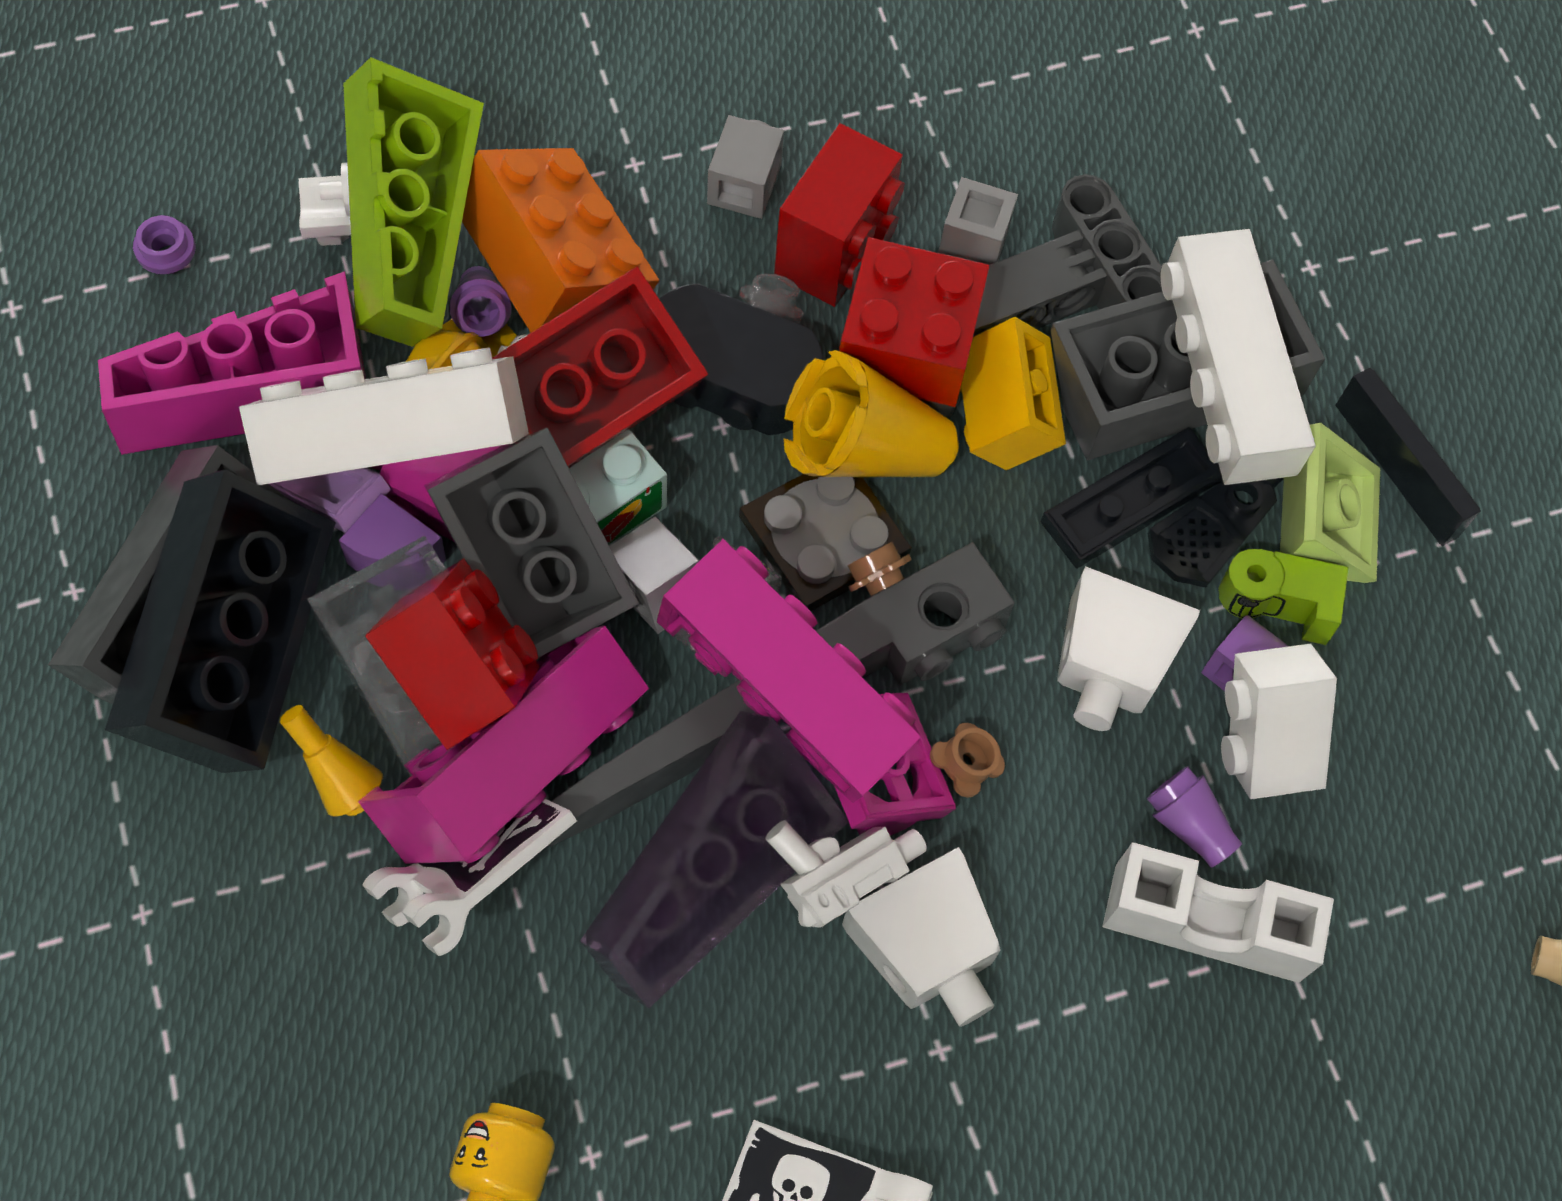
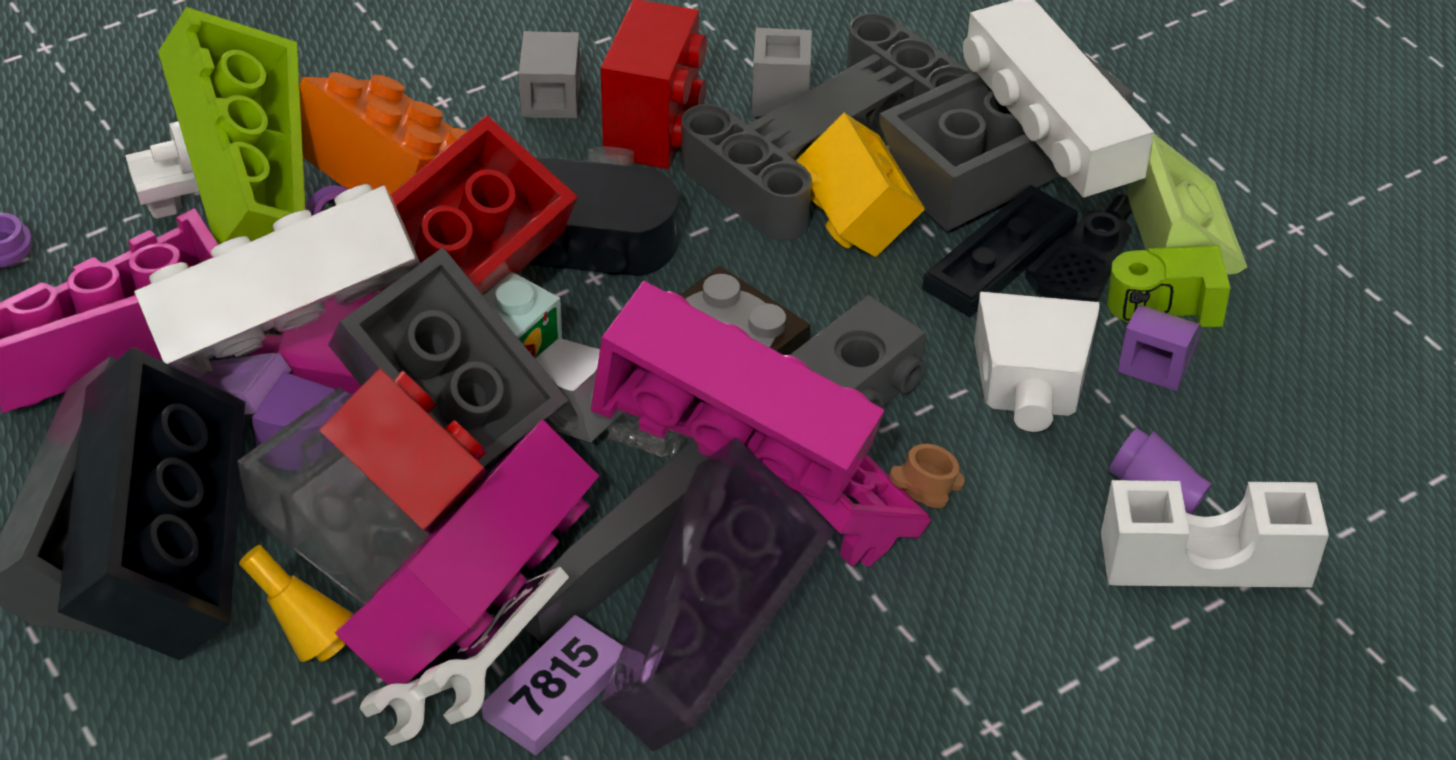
camera: 10 degrees left, 20 degrees down
(549, 898) = (553, 685): none -> lavender tile
(836, 877) = (840, 580): white piece -> none
(863, 425) = (733, 223): yellow cone -> none
(878, 569) = (787, 331): medium nougat plate -> none
(915, 317) = (752, 133): red brick -> none
(930, 936) = (944, 622): white torso -> none
(1279, 721) = (1207, 367): white brick -> none
(1407, 457) = (1239, 165): black tile -> none

